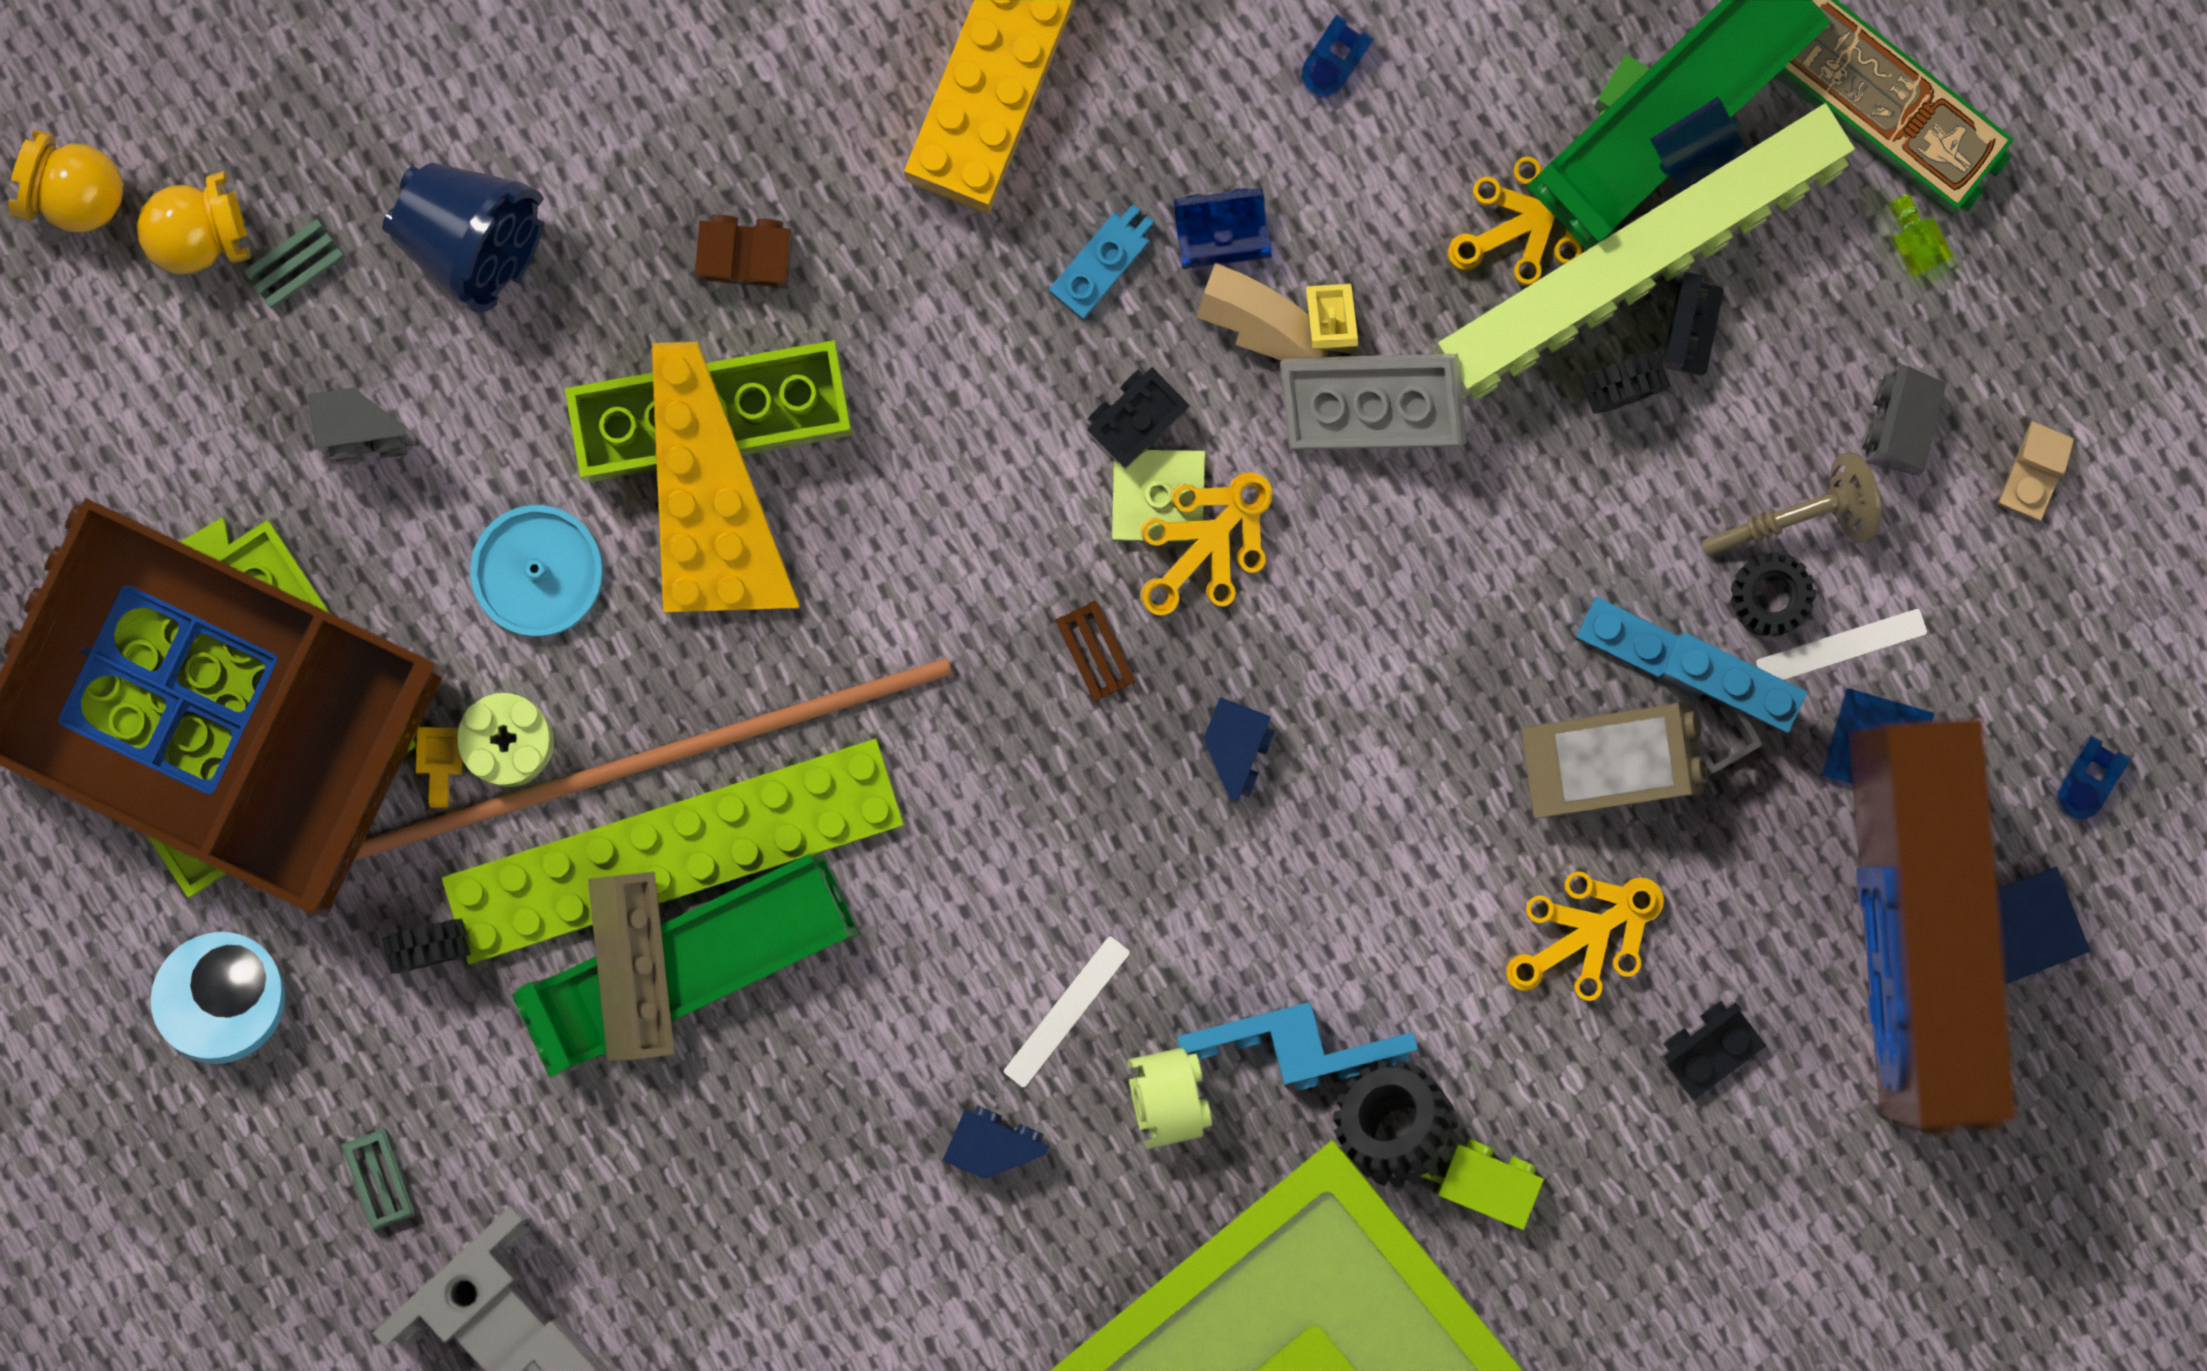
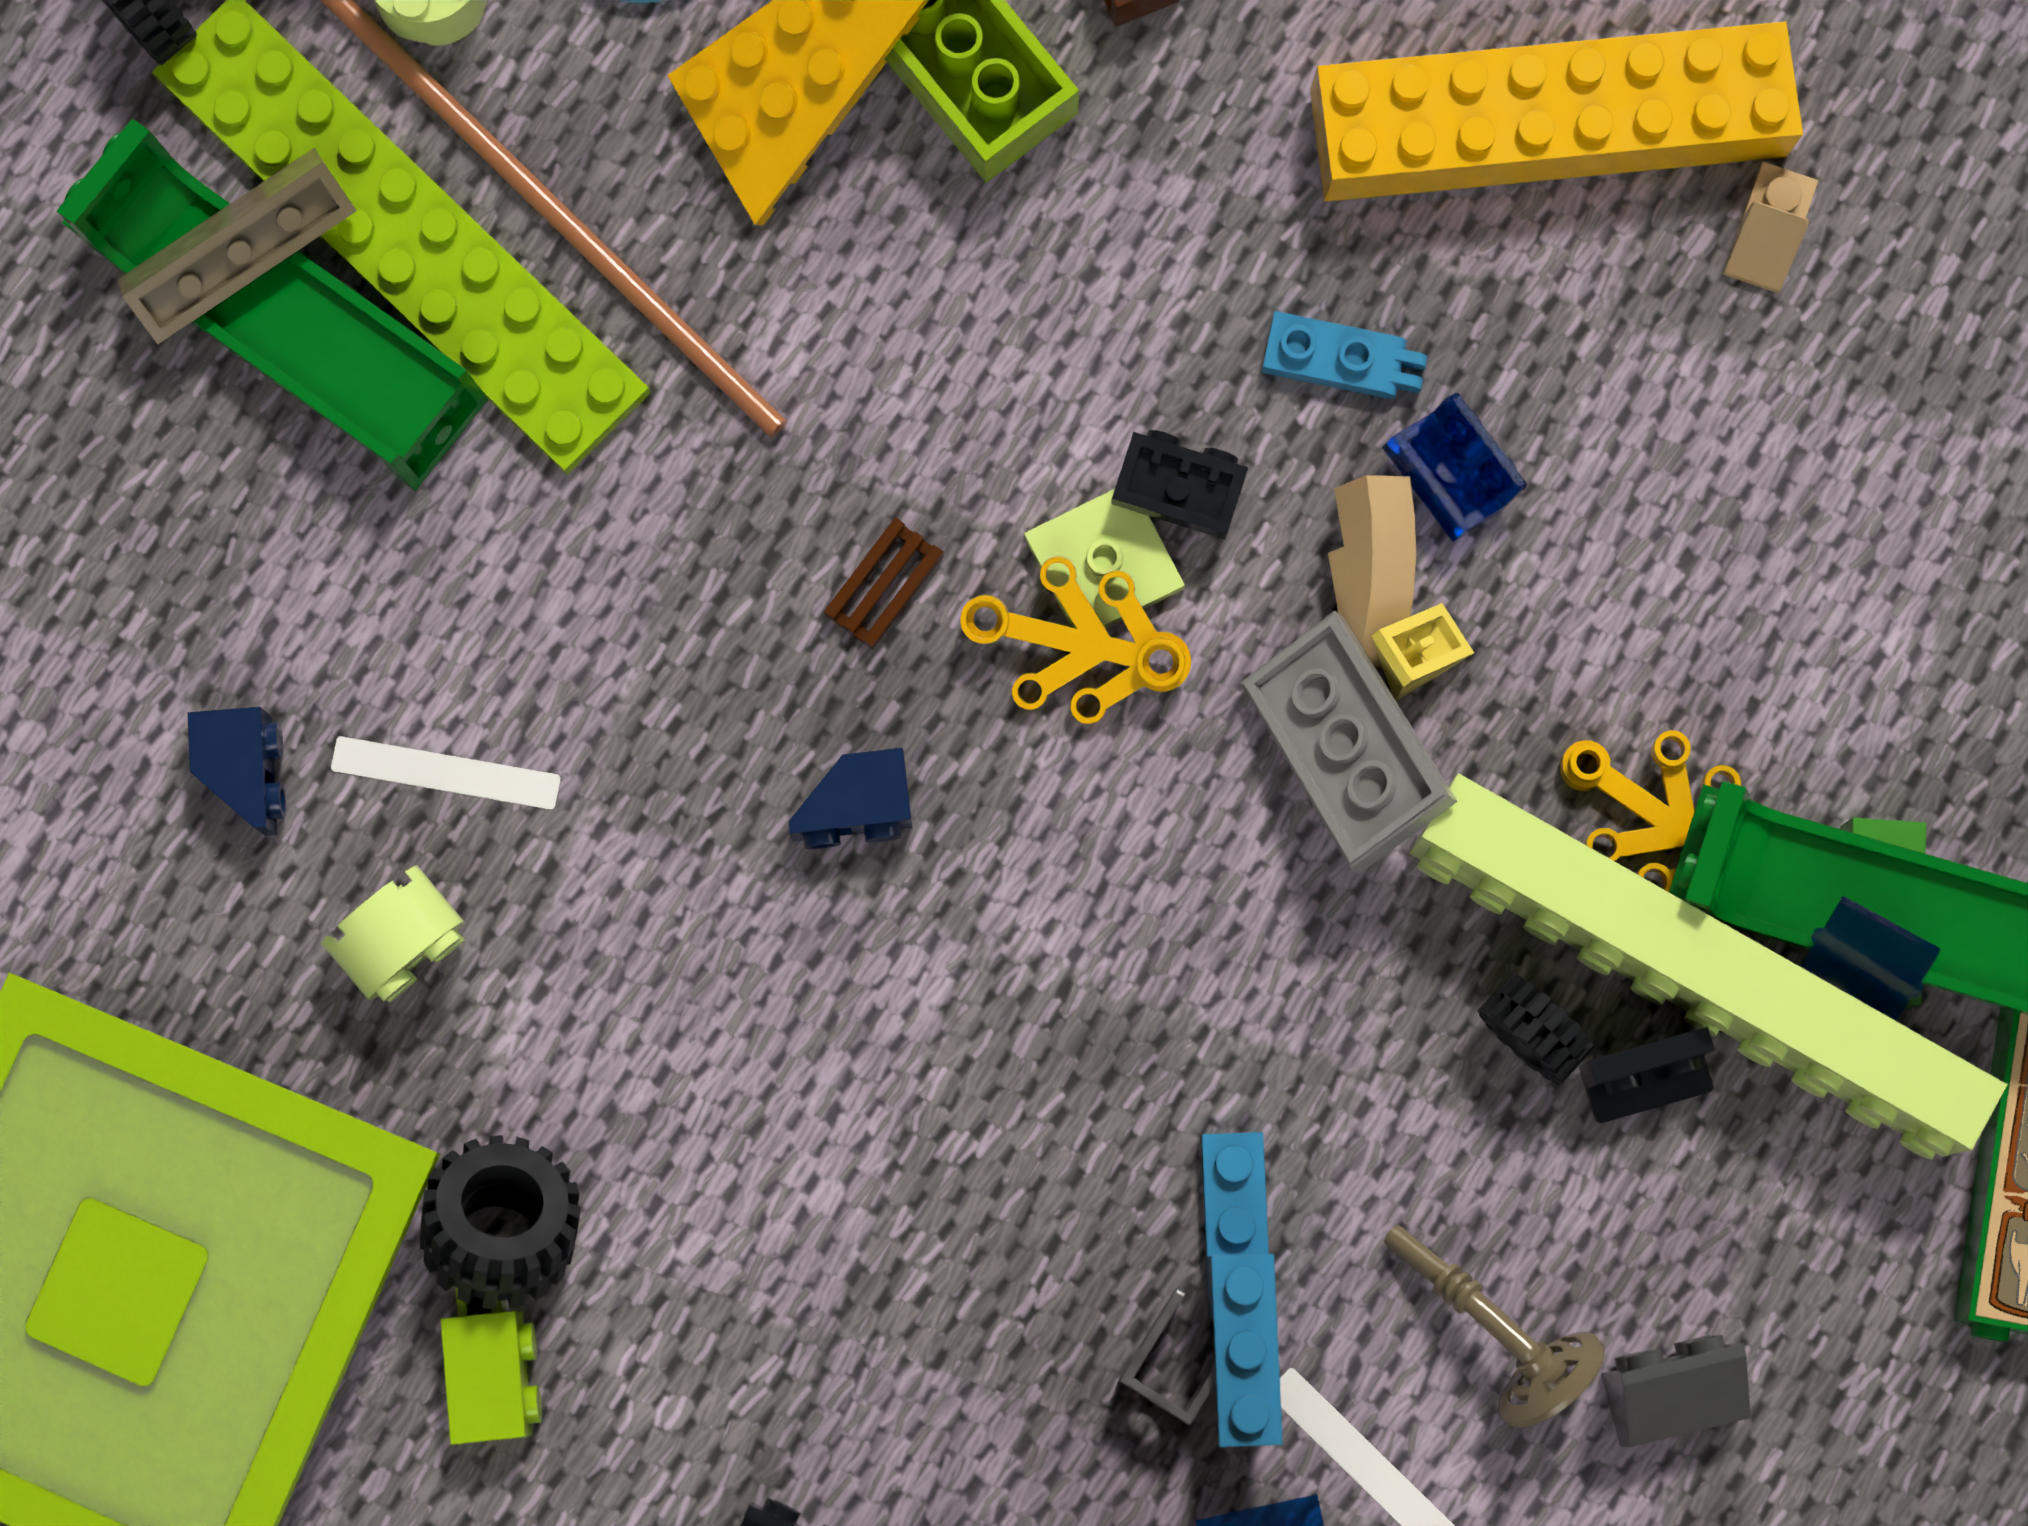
camera: 60 degrees right, 5 degrees down
(1297, 1045) = (539, 1059): dark azure bracket -> none
(1326, 72) = (1703, 495): clear blue plate -> none
(1592, 930) = (859, 1339): yellow plant -> none
(1614, 760) = (1075, 1254): panel -> none
(1792, 574) = (1418, 1336): black tyre -> none
(1919, 243) = (1899, 1298): clear neon green plate -> none

